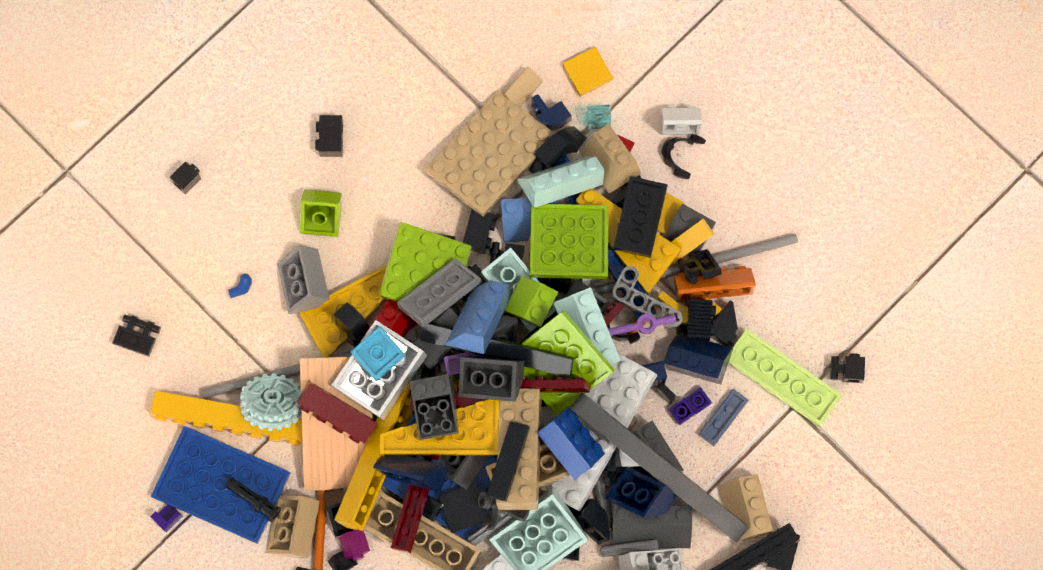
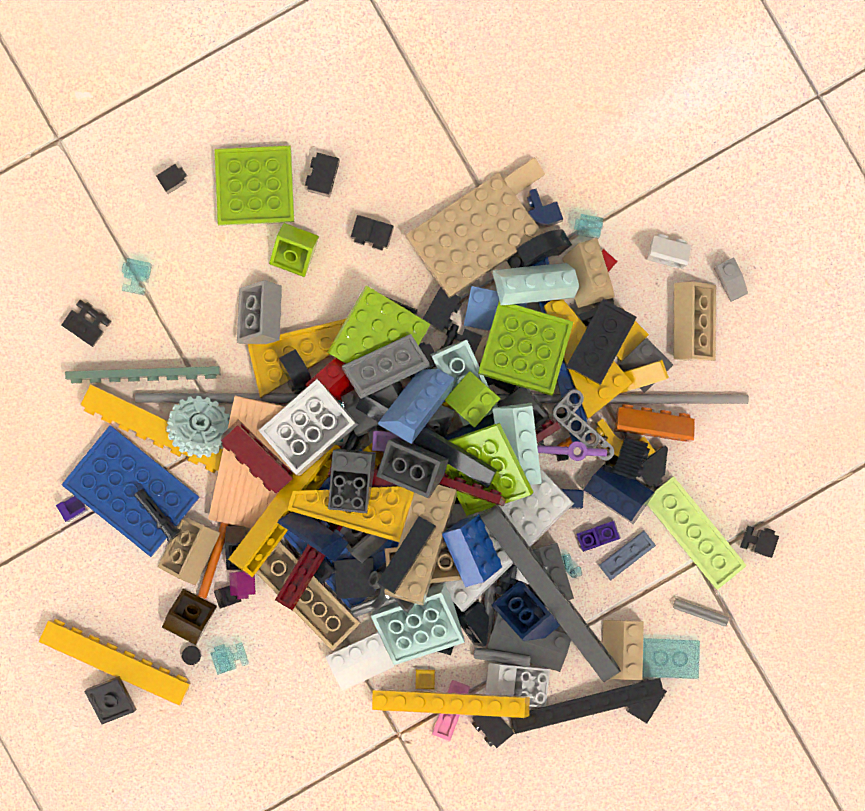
camera: 10 degrees right, 10 degrees up
(174, 273) = (137, 272): none -> clear light blue brick
(196, 371) = (135, 374): none -> sand green plate
(243, 286) = (200, 303): blue arm -> none
(267, 163) = (254, 185): none -> lime plate
(378, 353) = (310, 413): medium azure tile -> none
(392, 176) = (372, 232): none -> black brick
(587, 71) = (592, 176): yellow tile -> none
(666, 393) = (578, 518): black tile -> none
(669, 145) = (649, 274): black helmet -> none
(674, 446) = (573, 572): none -> clear light blue arm
(704, 266) = (650, 406): black plate -> none
(724, 178) = (694, 321): none -> tan slope
(747, 130) = (731, 279): none -> light grey slope
(795, 504) = (671, 658): none -> clear light blue tile
(811, 453) = (700, 612): none -> light grey axle

